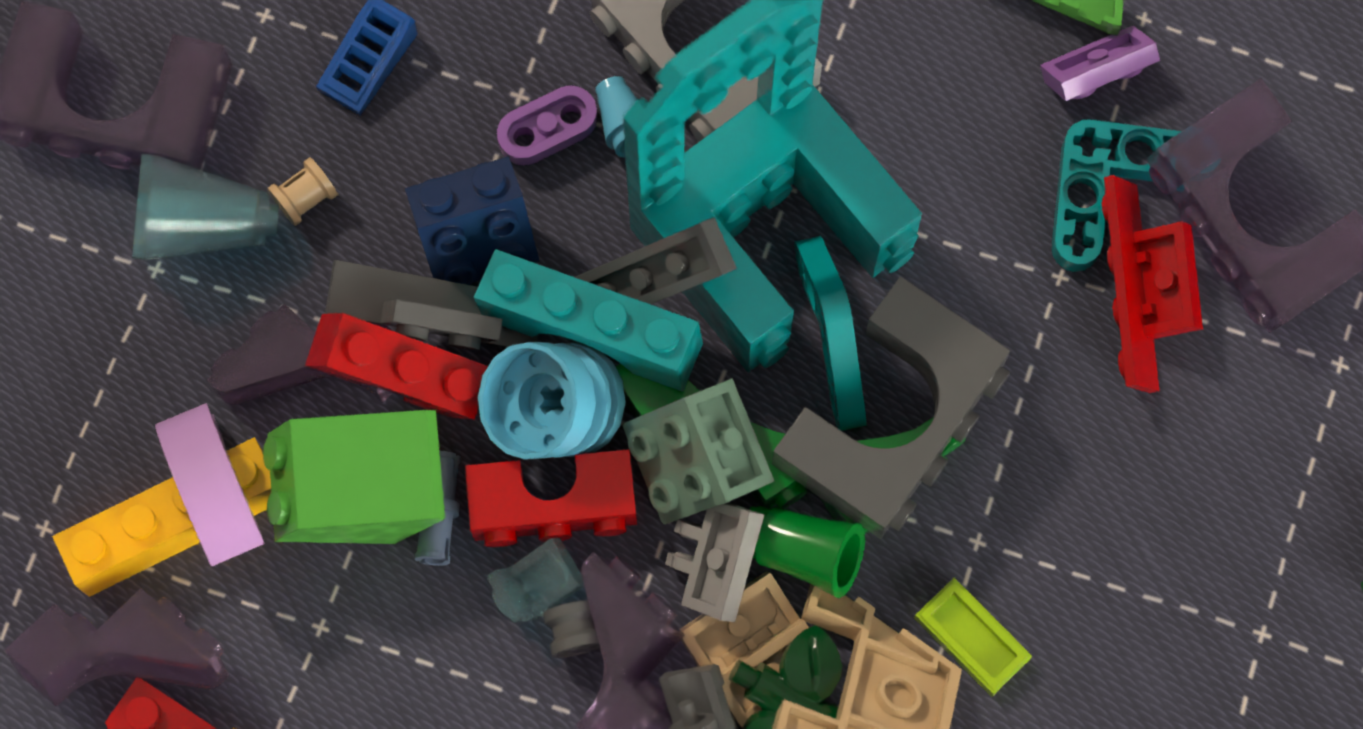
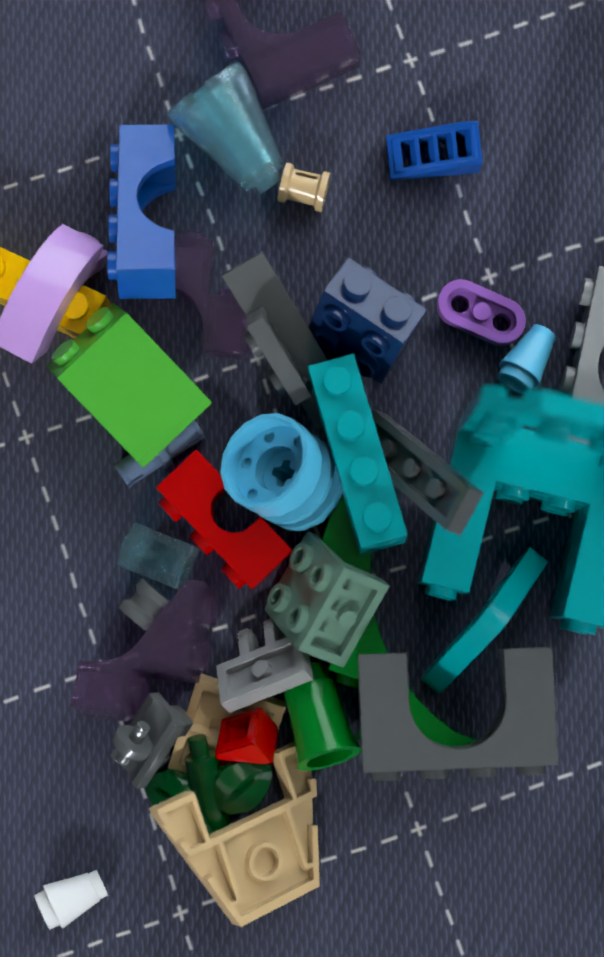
camera: 55 degrees right, 10 degrees up
(248, 364) = (145, 250): none -> arch
(396, 363) = (224, 351): red arch -> none
(770, 625) = (247, 738): none -> red slope
(973, 637) = (348, 876): lime tile -> none

